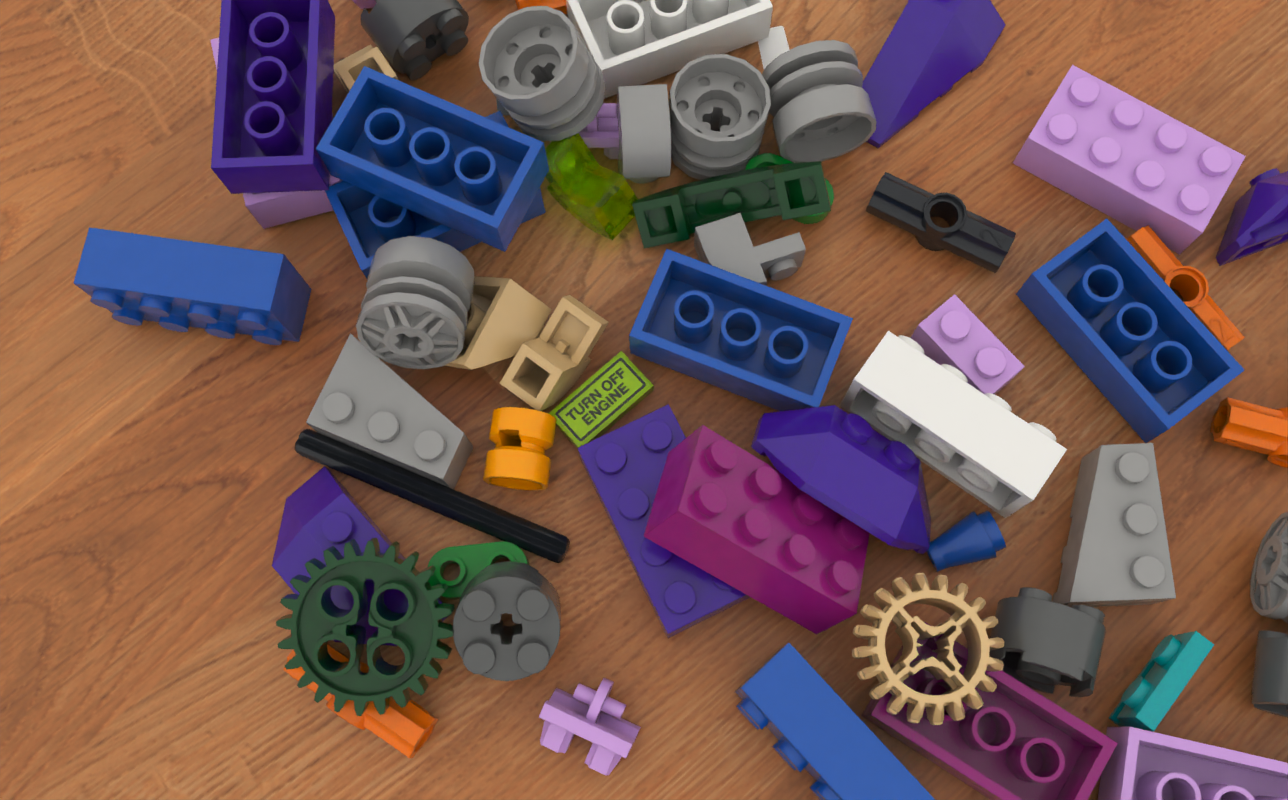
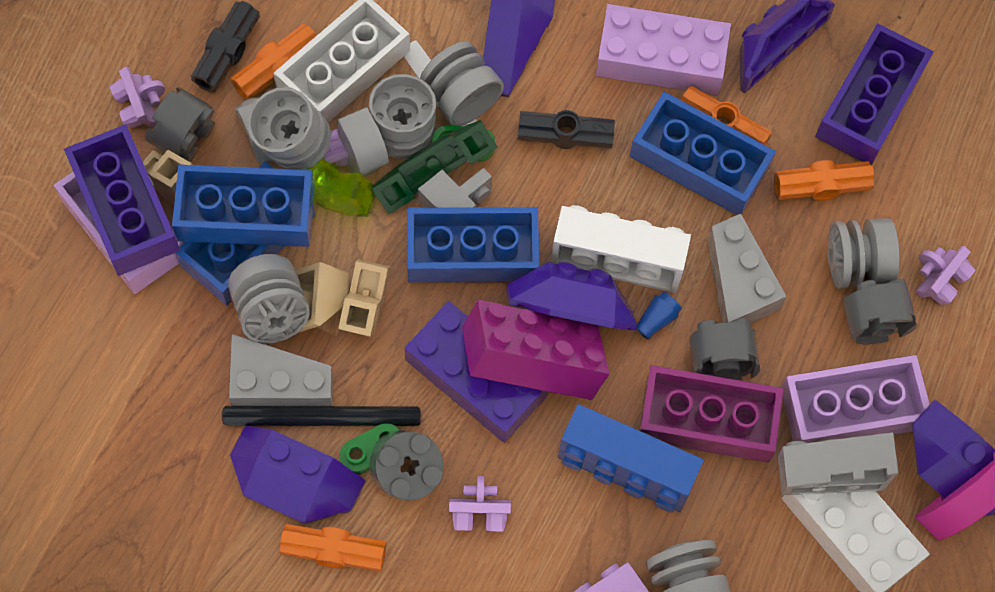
camera: 30 degrees left, 5 degrees down
(194, 286) = (115, 344): blue brick -> none
(319, 620) = (355, 487): dark green gear -> none
(519, 449) = (365, 359): light orange wheel -> none
(601, 400) = (402, 318): lime tile -> none
(945, 666) = (646, 369): tan gear -> none
(961, 340) = (608, 196): lavender brick -> none
(1161, 681) = (799, 332): teal plate -> none

